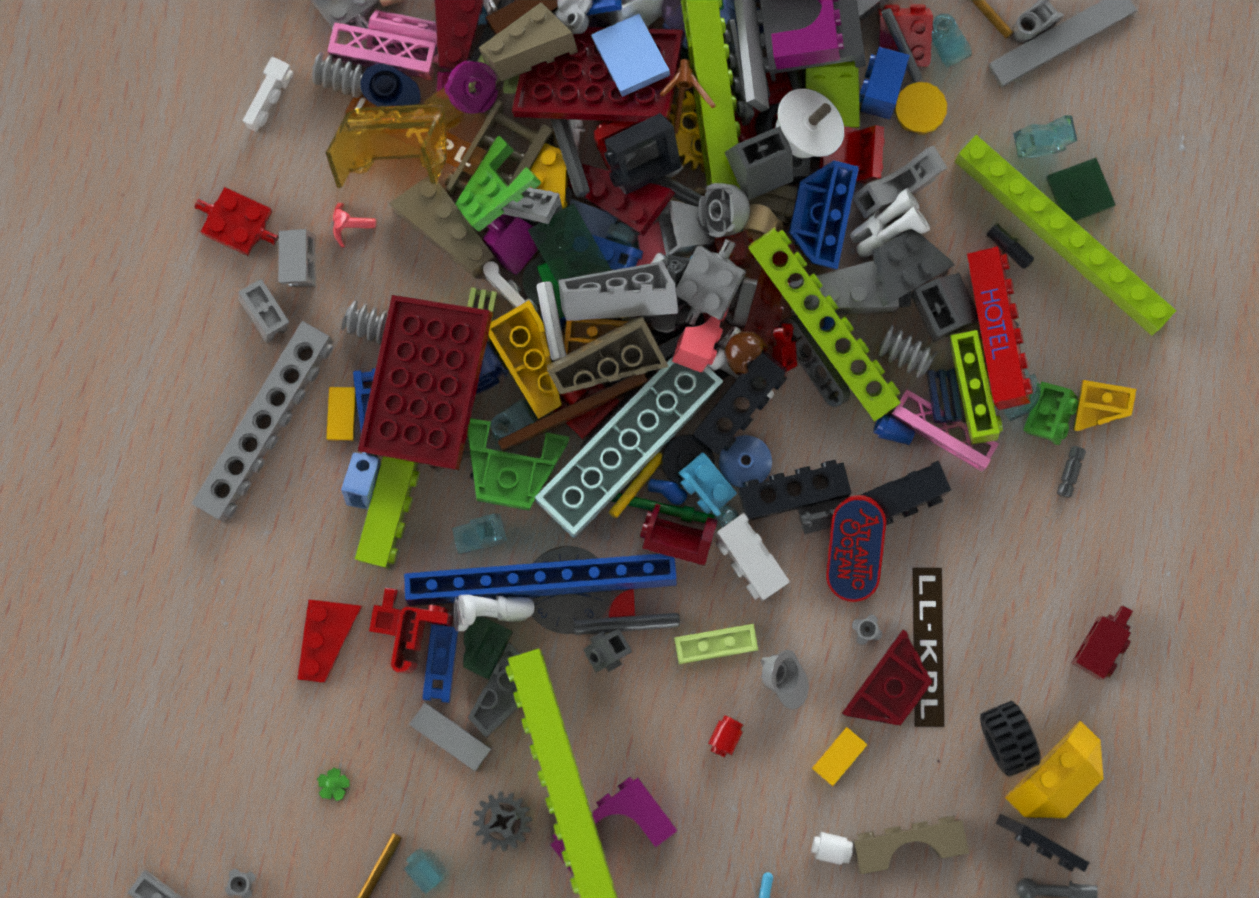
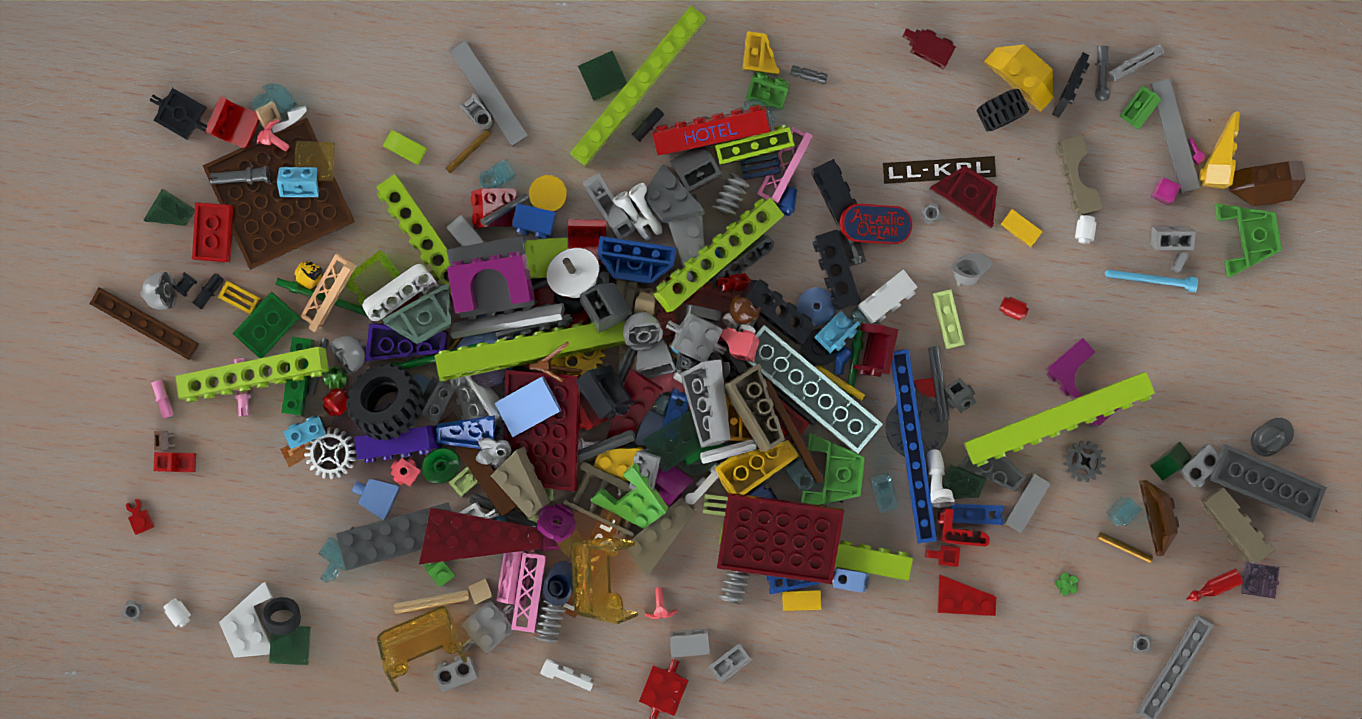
camera: 100 degrees left, 5 degrees up
(249, 428) = (871, 691): light grey brick -> none
(1045, 139) = (567, 103): clear light blue brick -> none

